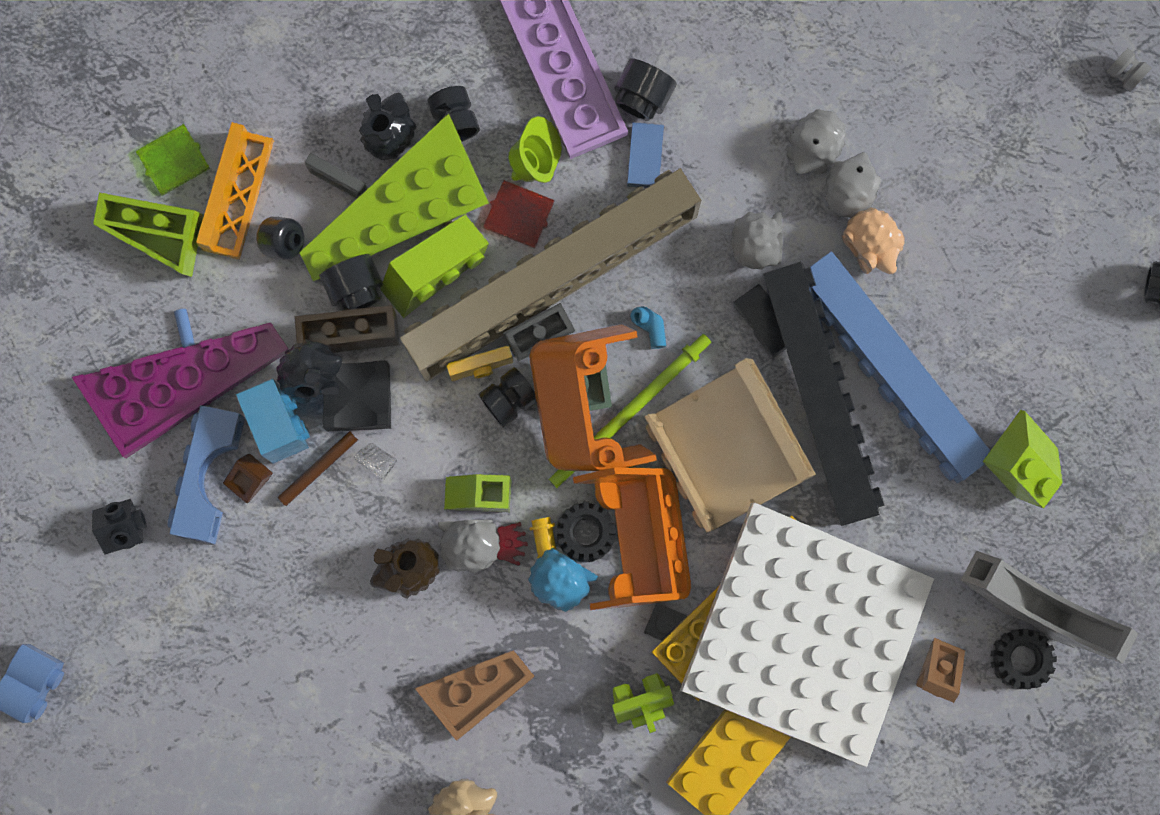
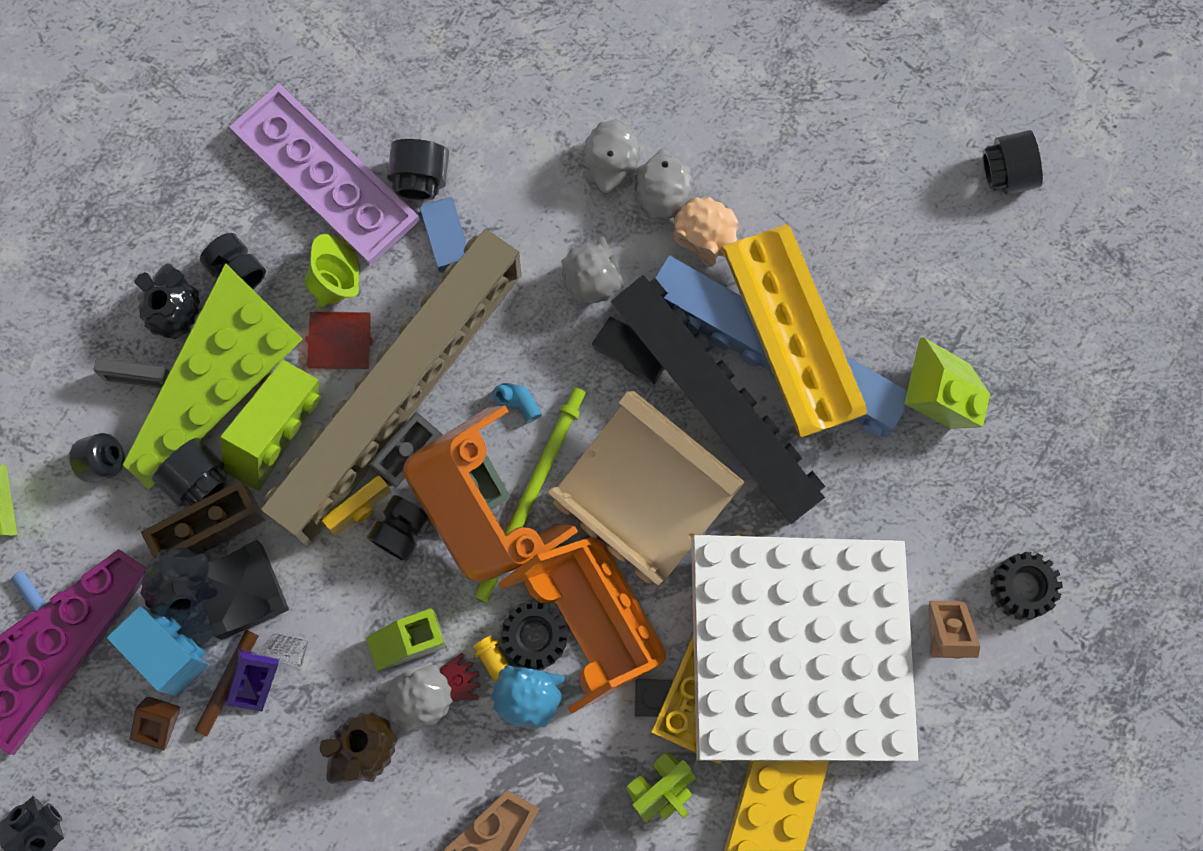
camera: 25 degrees left, 5 degrees down
(214, 434) = (99, 692): medium blue arch -> none
(223, 188) = (17, 430): light orange fence -> none
(339, 475) = (251, 680): none -> dark purple slope
(913, 360) = (794, 331): none -> yellow plate
(1046, 610) = (1030, 527): light grey arch -> none

